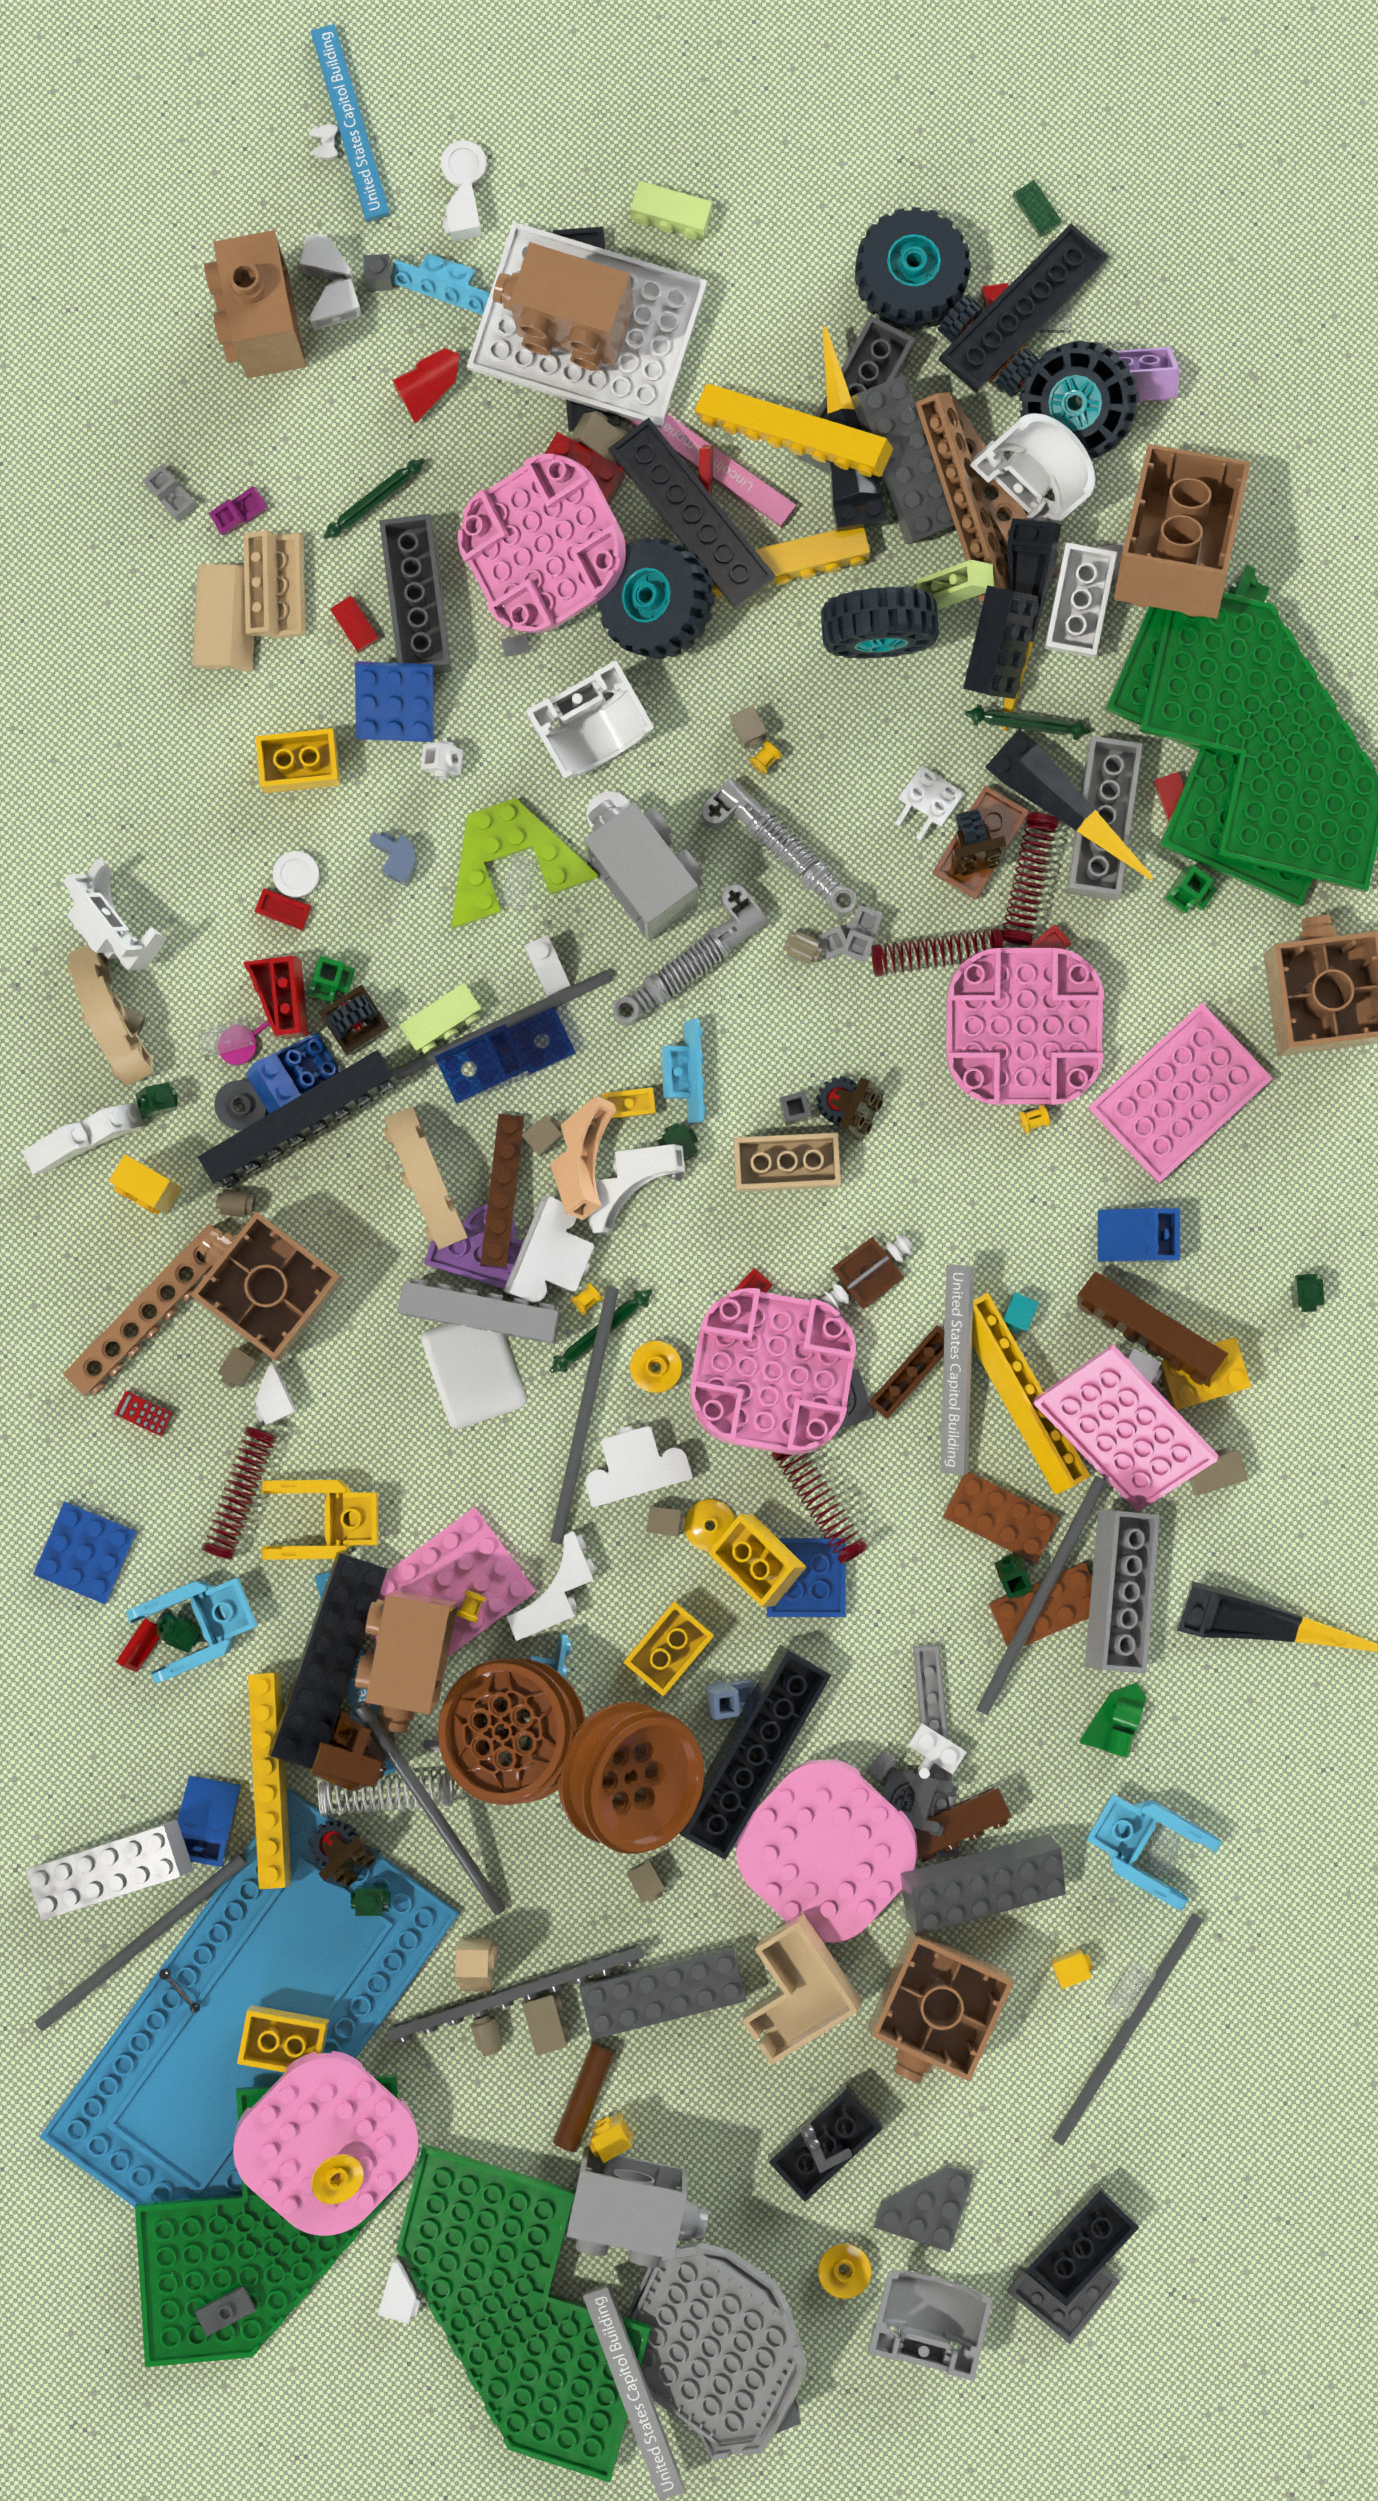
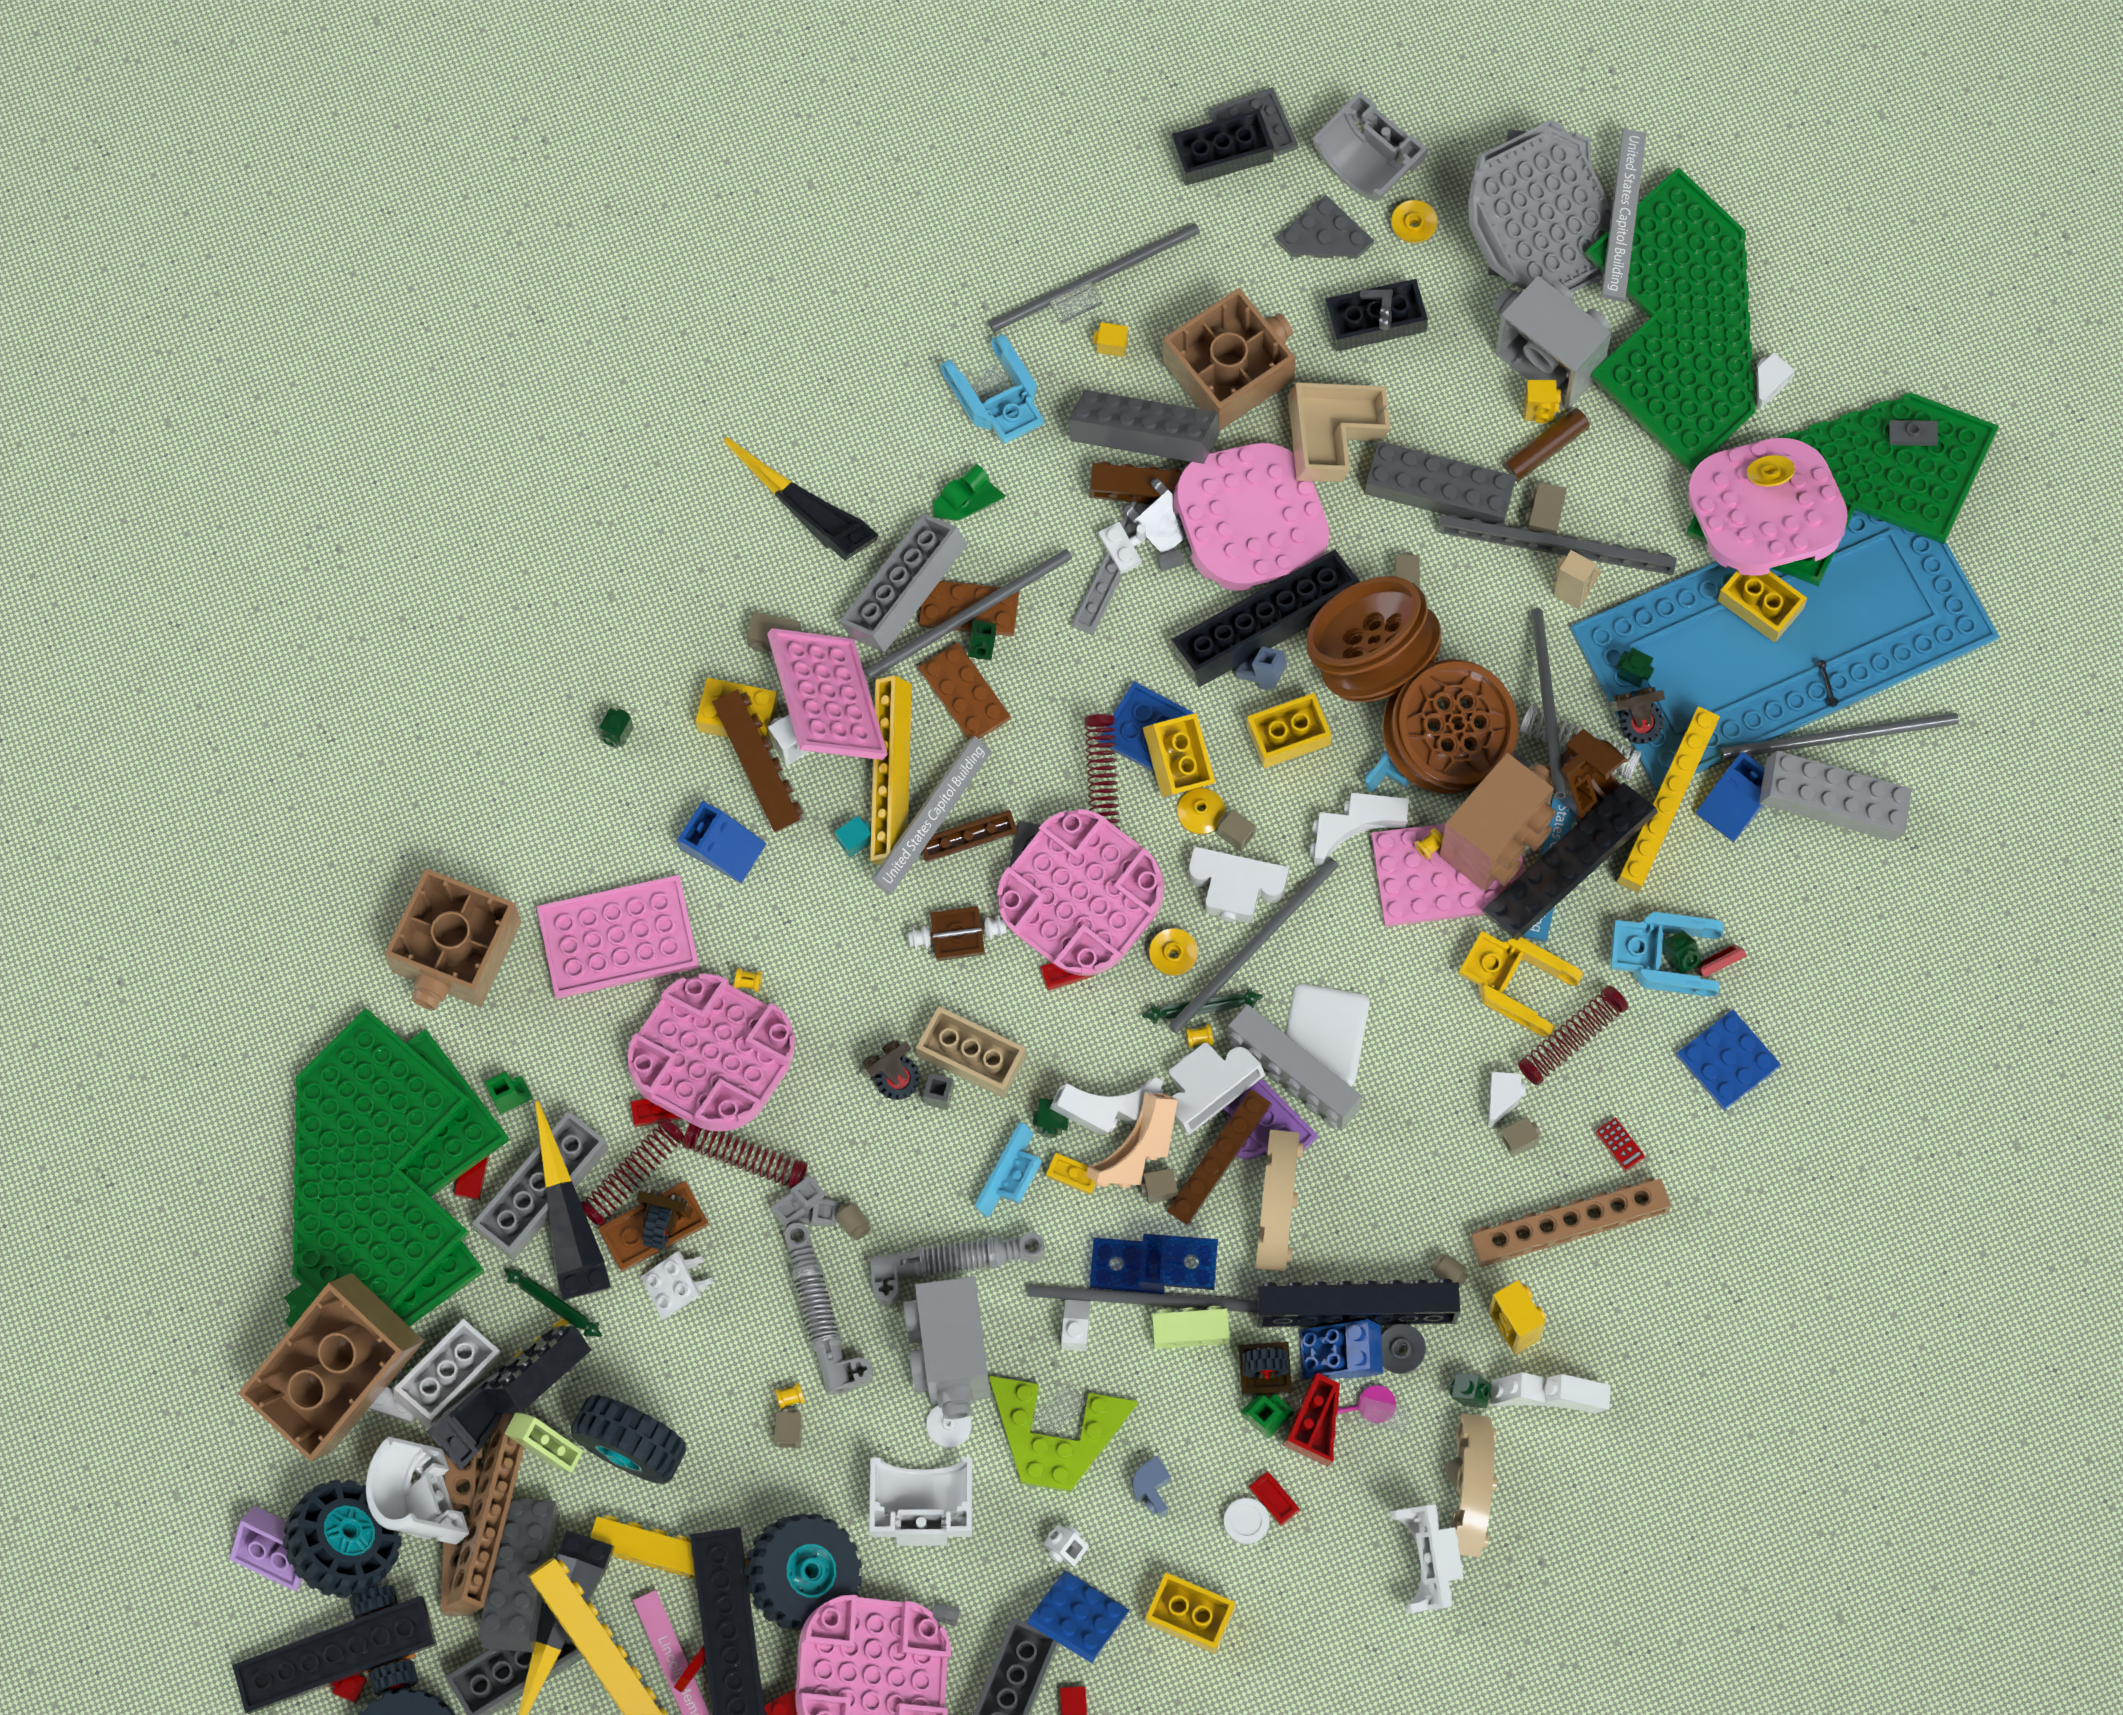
camera: 150 degrees left, 15 degrees down
(264, 1284) = (1459, 1178): medium nougat brick -> none
(487, 2034) = (1598, 525): dark tan brick -> none

